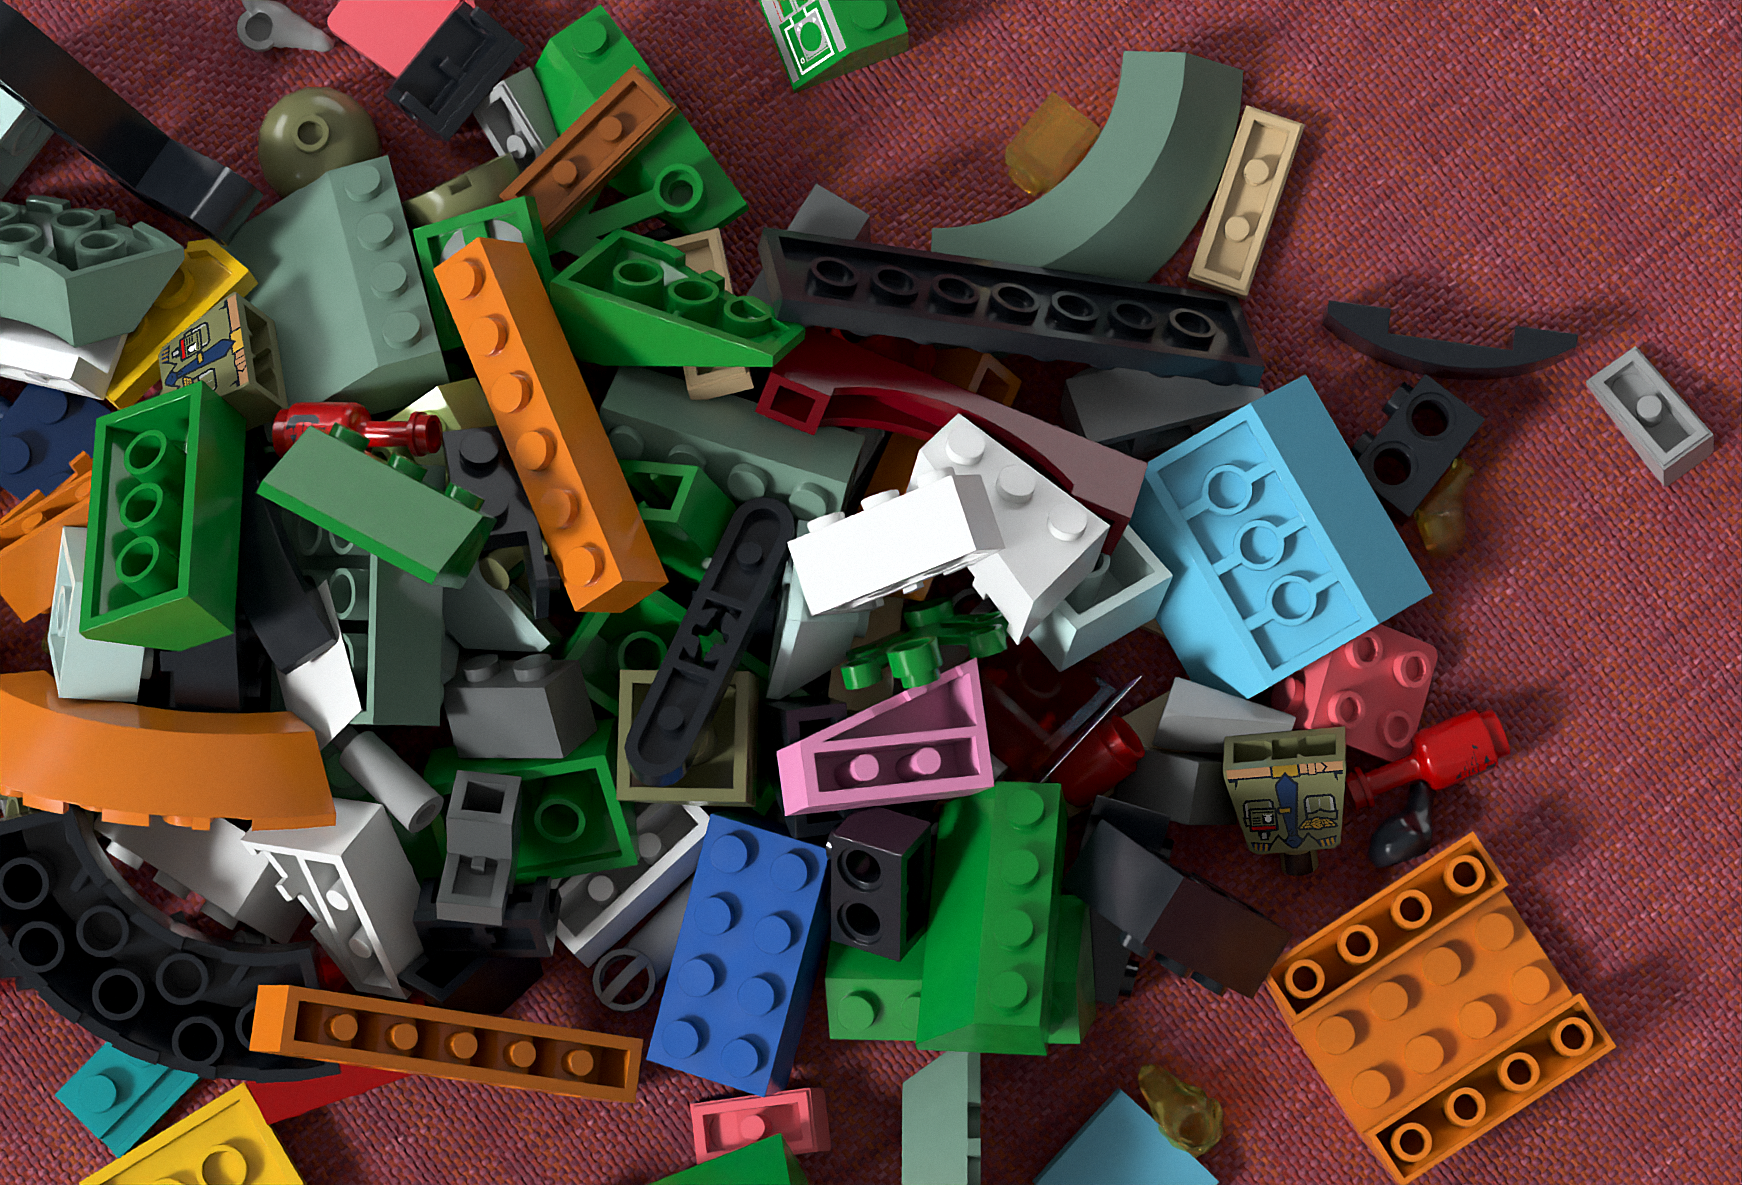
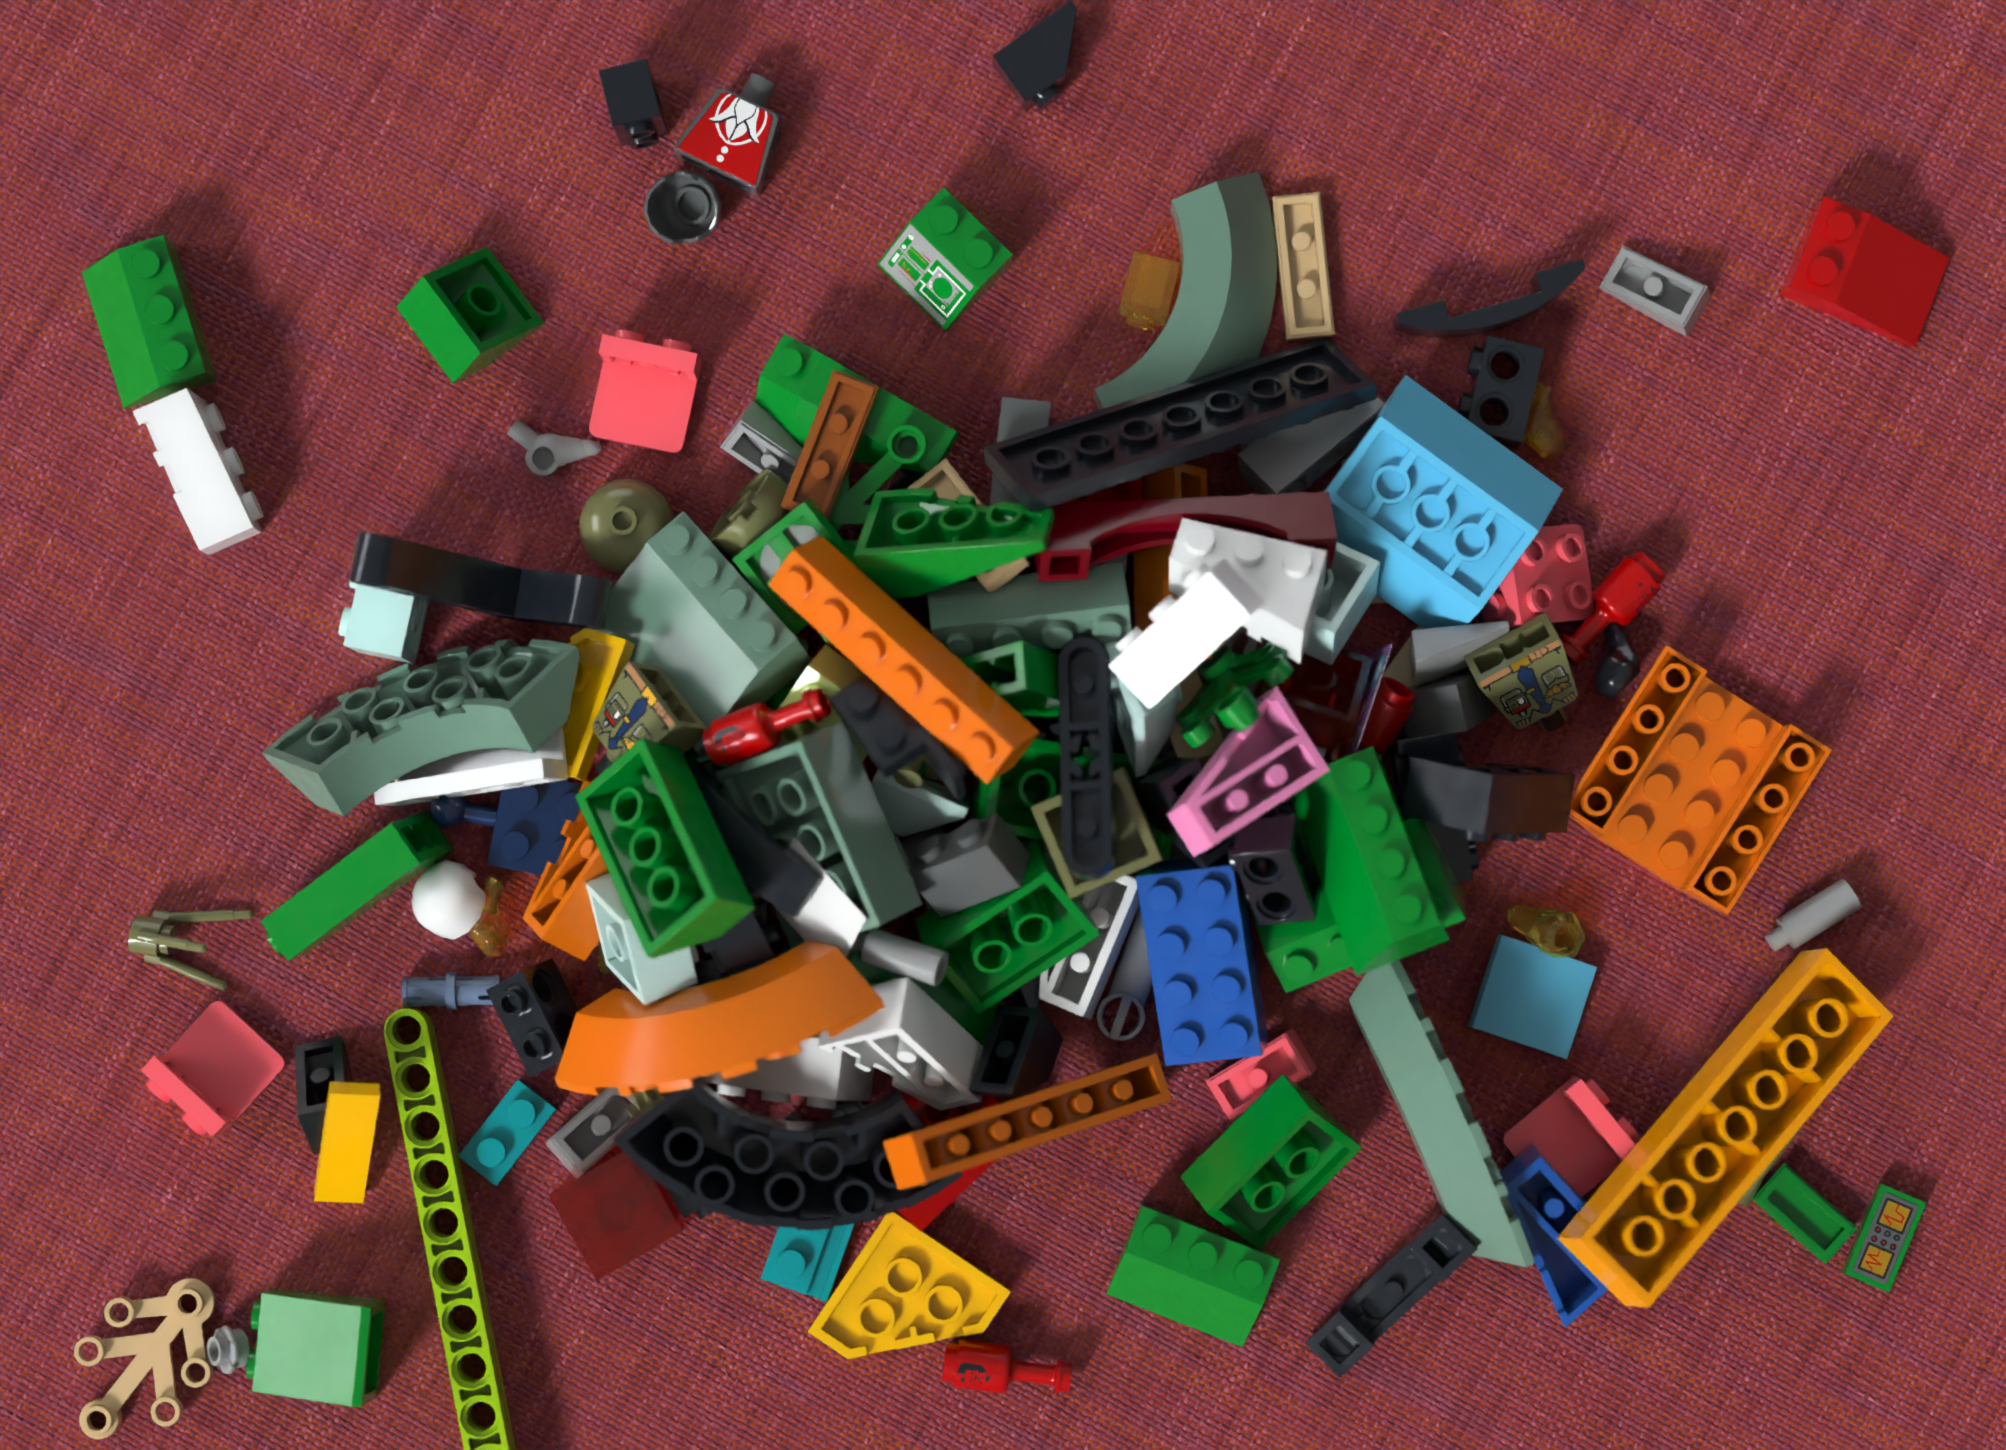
camera: 25 degrees left, 5 degrees up
(381, 505) = (820, 773): green slope -> none
(453, 71) = (700, 428): black hinge -> none
(481, 847) = (990, 976): dark grey brick -> none
(526, 929) = (1014, 1022): black hinge -> none

